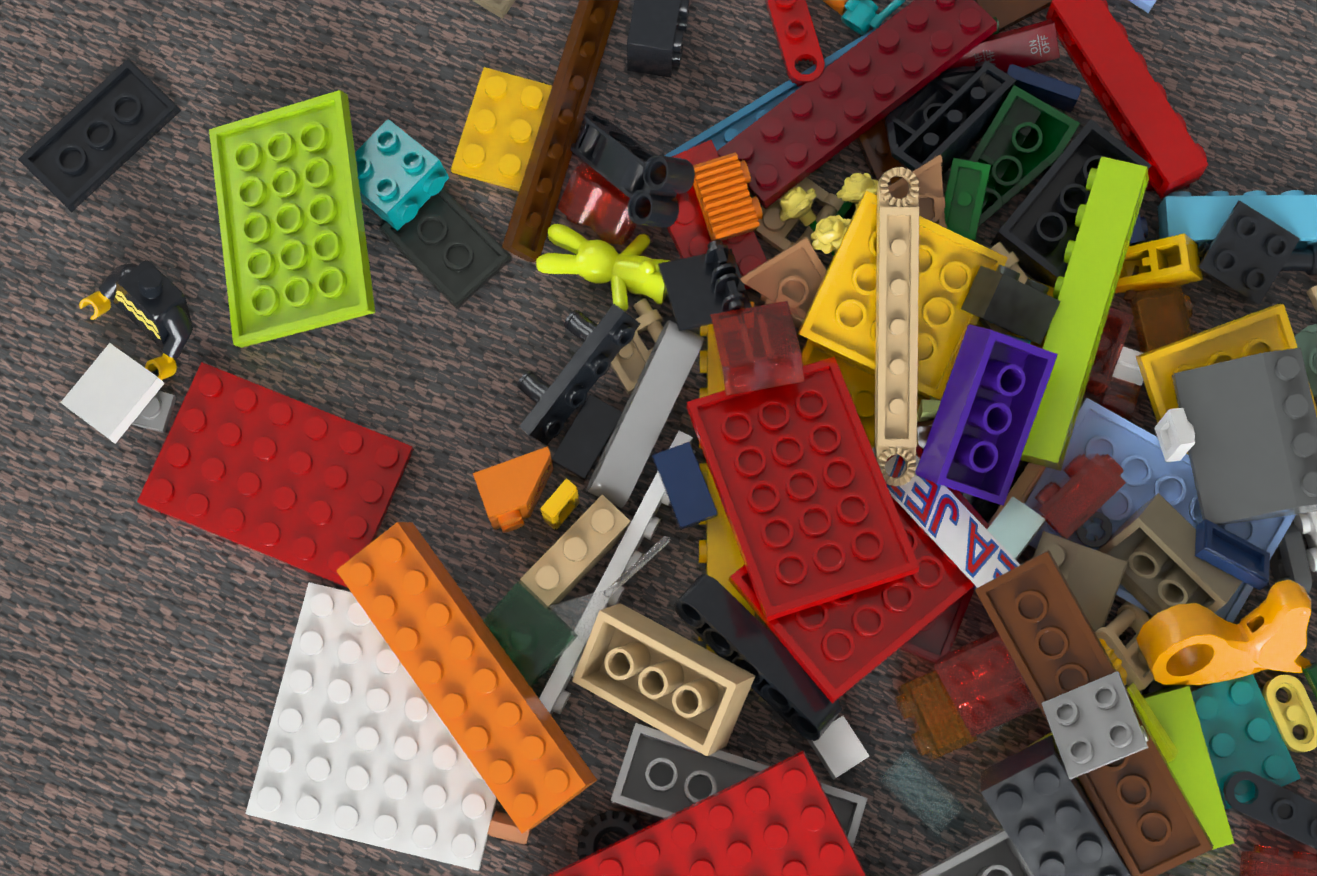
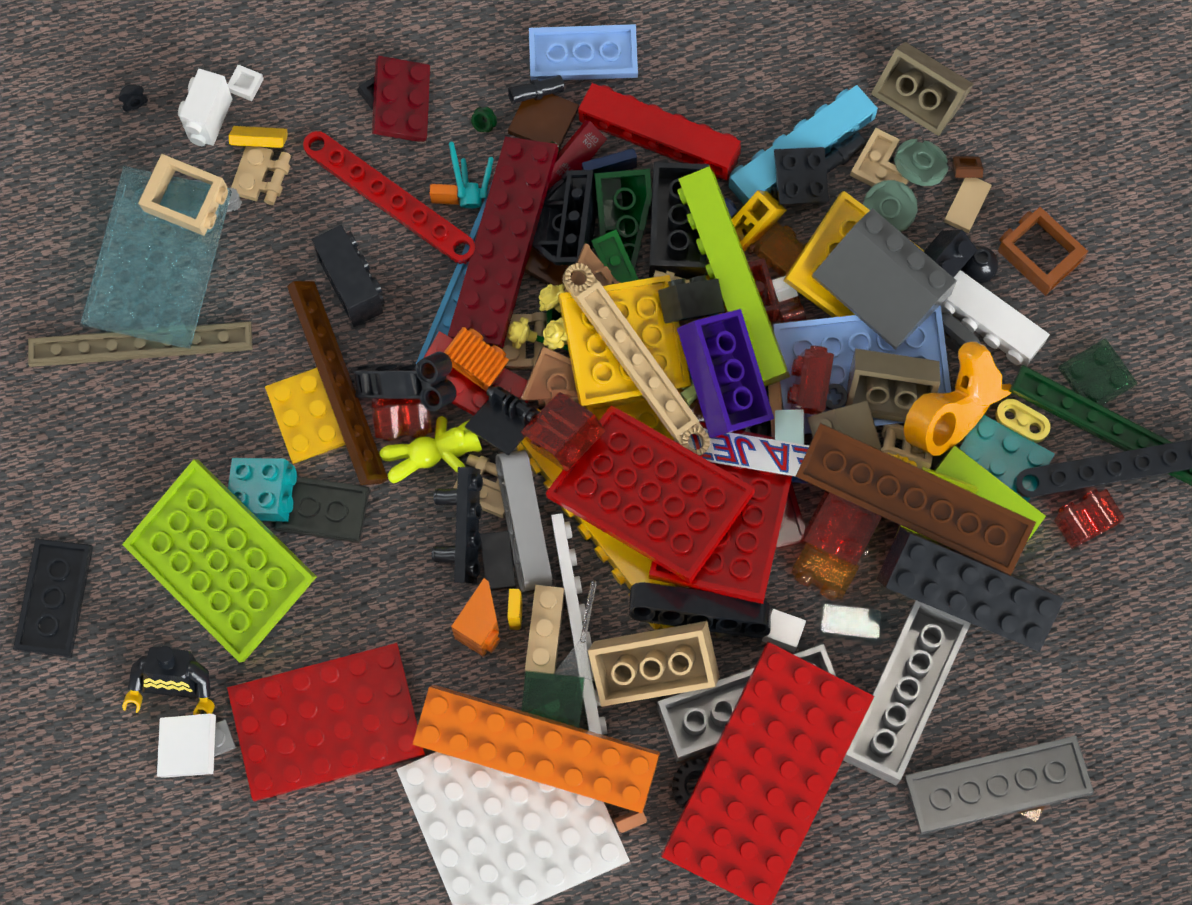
camera: 35 degrees left, 5 degrees down
(684, 485) = (580, 543): dark blue tile -> none
(1095, 725) = (920, 501): light grey hinge -> none
(1175, 434) = (839, 308): white plate -> none
(1232, 554) = (922, 353): dark blue tile -> none

